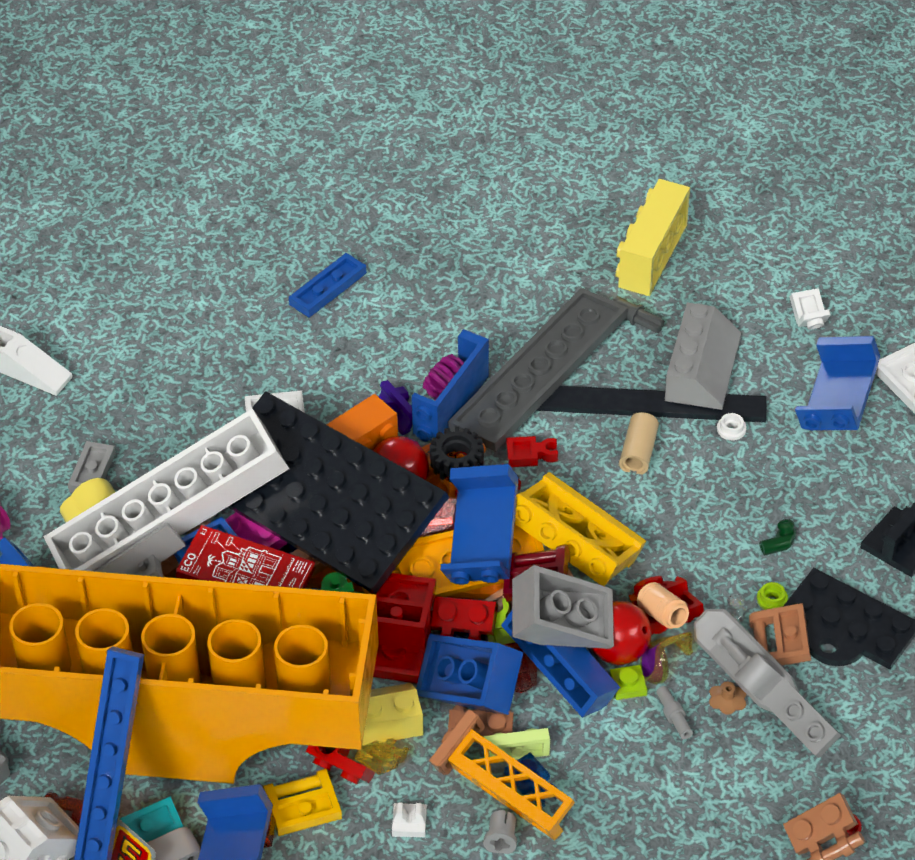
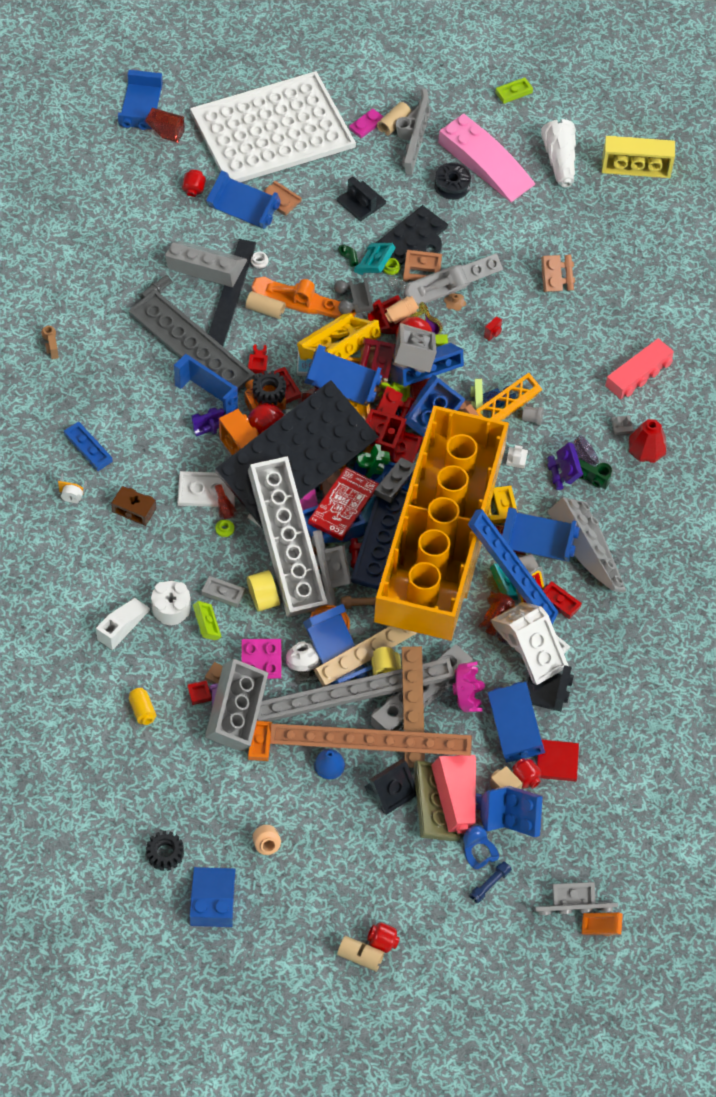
camera: 85 degrees left, 10 degrees up
(37, 456) = (207, 620): none -> lime plate
(61, 408) = (171, 602): none -> white brick
(228, 346) = (134, 505): none -> reddish brown brick
(241, 275) = (70, 491): none -> white piece
(441, 375) = (195, 389): magenta gear -> none
(498, 217) = (49, 334): none -> medium nougat plate
(652, 237) = (100, 262): light yellow brick -> none
(668, 489) = (298, 297): none -> orange piece
(673, 750) = (493, 328): none -> red plate
(674, 712) = (464, 325): light grey bar -> none
(685, 554) = (360, 294): none -> dark grey gear
(765, 566) = (375, 258): none -> teal plate
(809, 309) = (175, 203): white bracket -> none
(856, 322) = (193, 183): none -> red head
(872, 437) = (288, 198): none -> nougat plate

